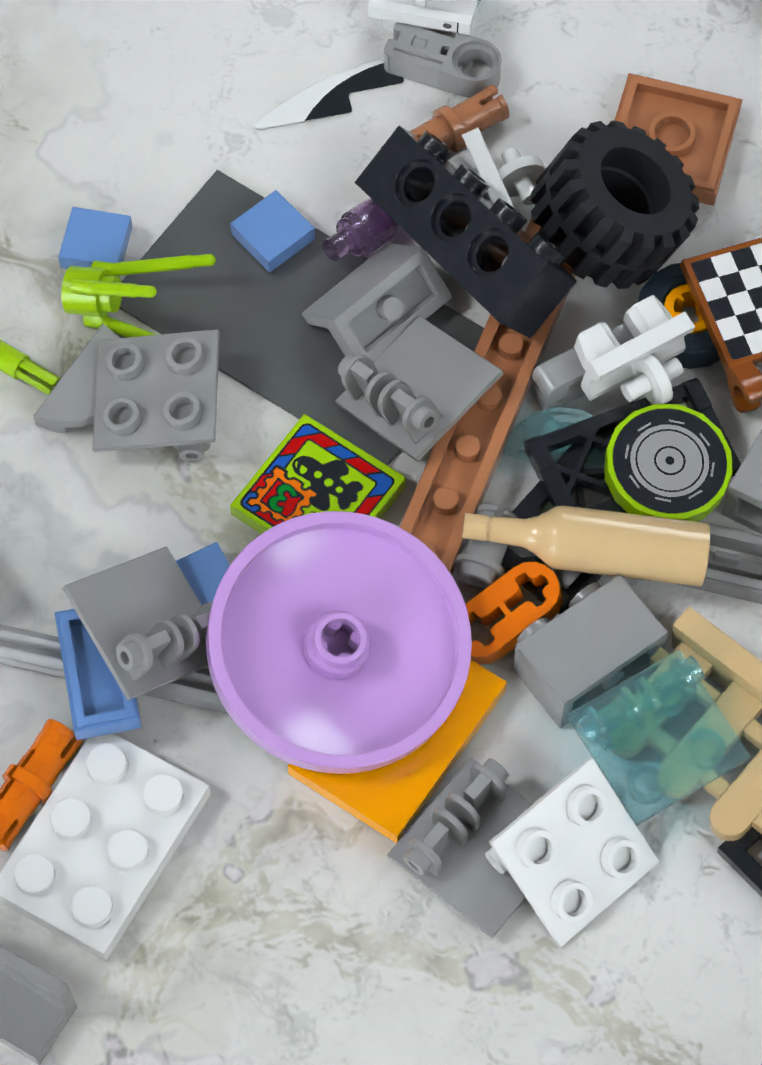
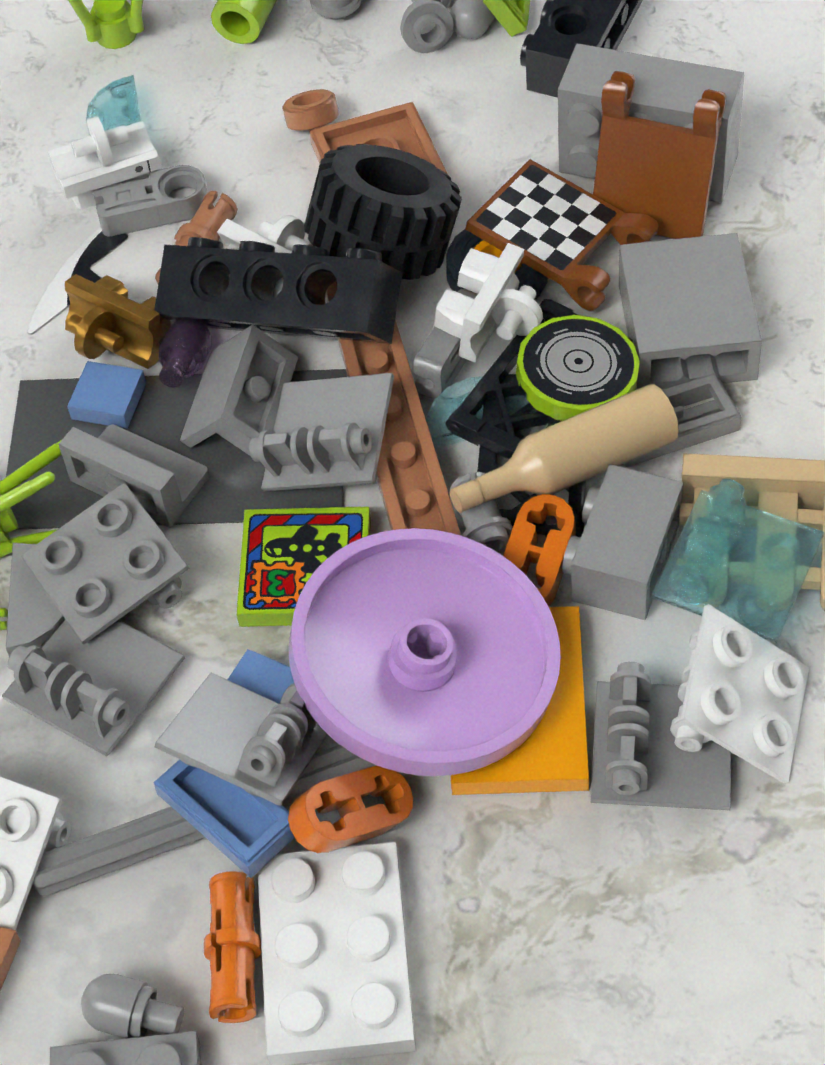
camera: 30 degrees left, 10 degrees down
(80, 493) = (92, 687): none -> light grey hinge
(187, 750) = (346, 796): none -> orange beam
(249, 317) = (155, 475): none -> light grey panel
(316, 165) = (110, 321): none -> pearl gold hips
(645, 52) = (310, 109): none -> nougat tile

